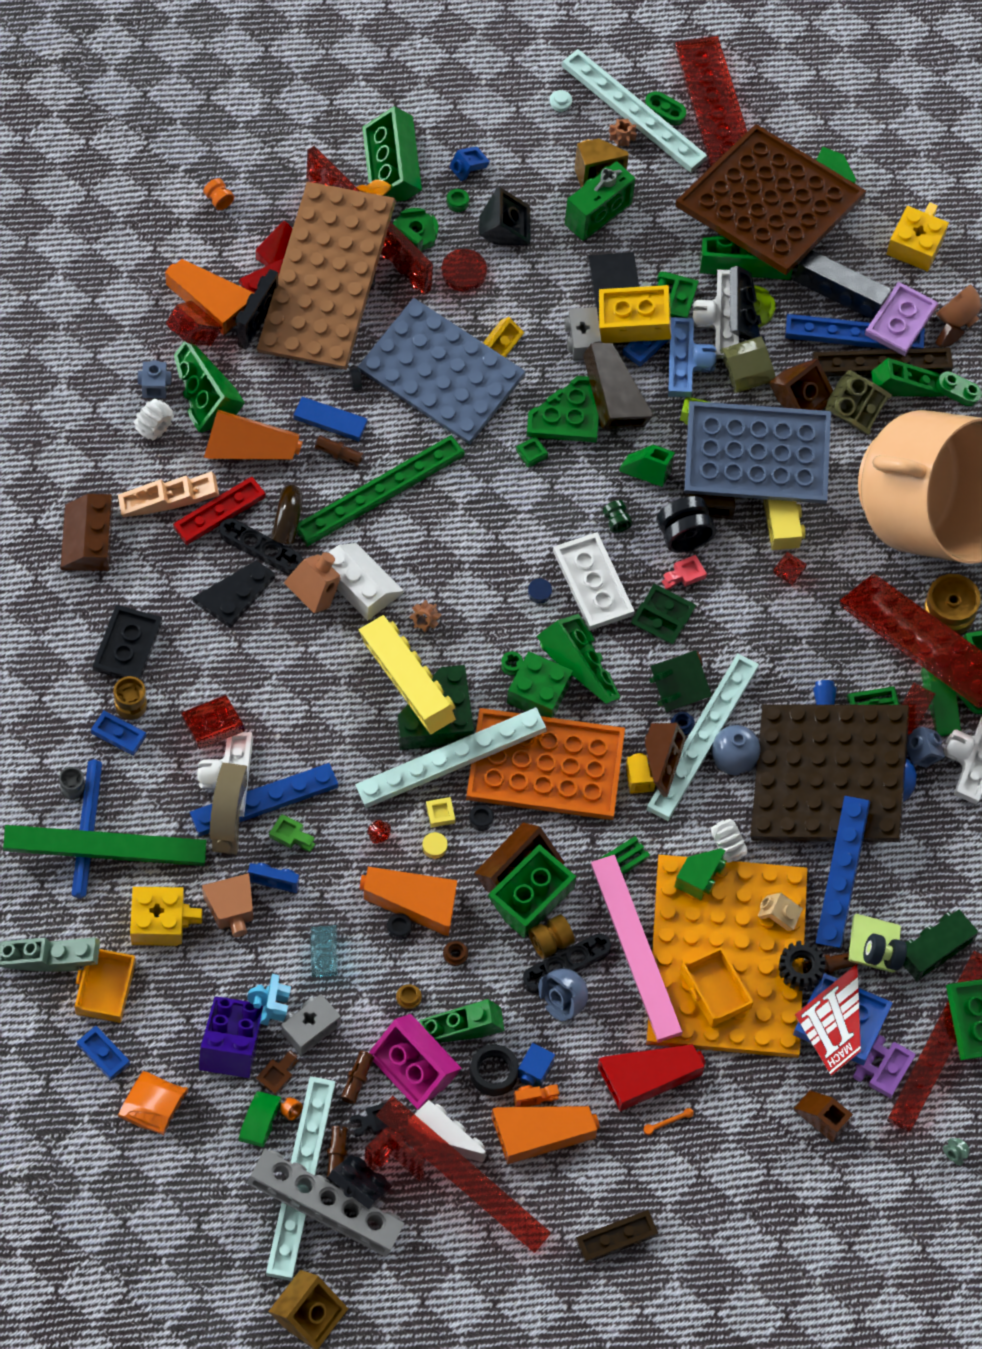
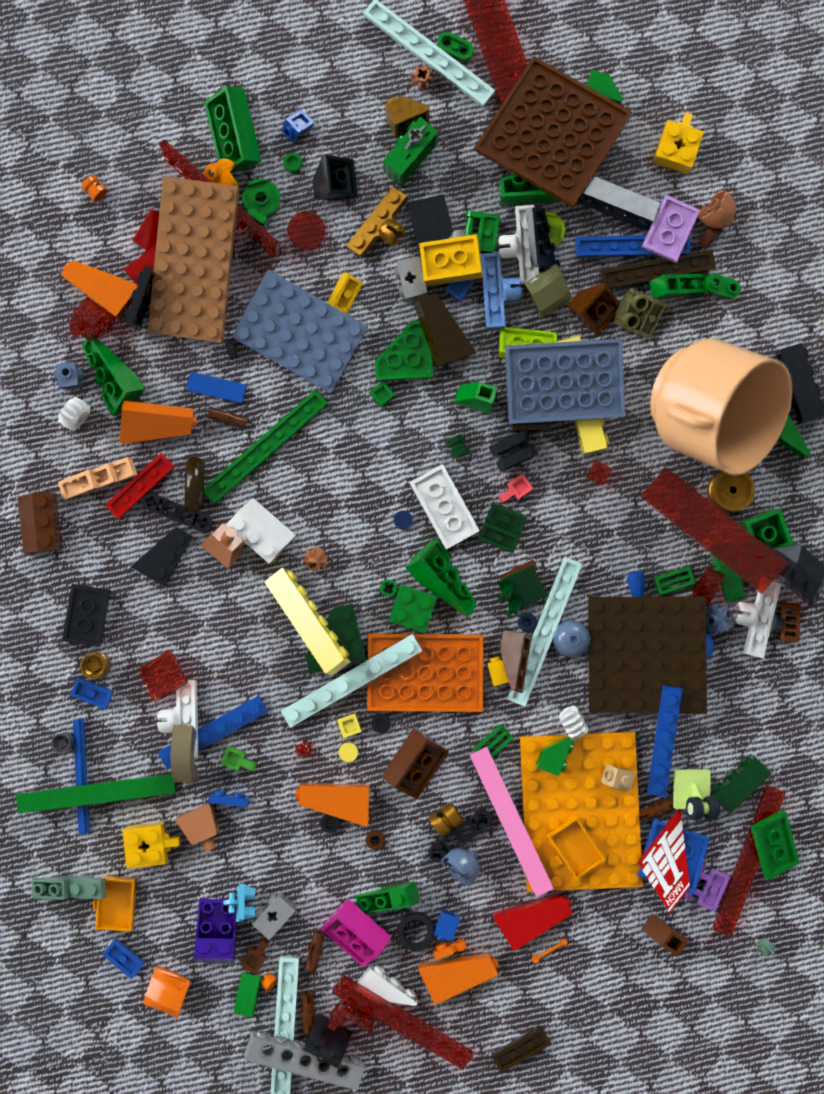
camera: 10 degrees left, 25 degrees up
(324, 951) = (275, 854): clear light blue slope -> none
(370, 1121) = (331, 980): black plate -> none
(408, 996) = (344, 880): pearl gold plate -> none
(532, 890) = (427, 787): green slope -> none
(554, 273) = (380, 224): none -> pearl gold plate
(560, 100) = (366, 51): light aqua plate -> none
(802, 951) = (645, 832): black tyre -> none

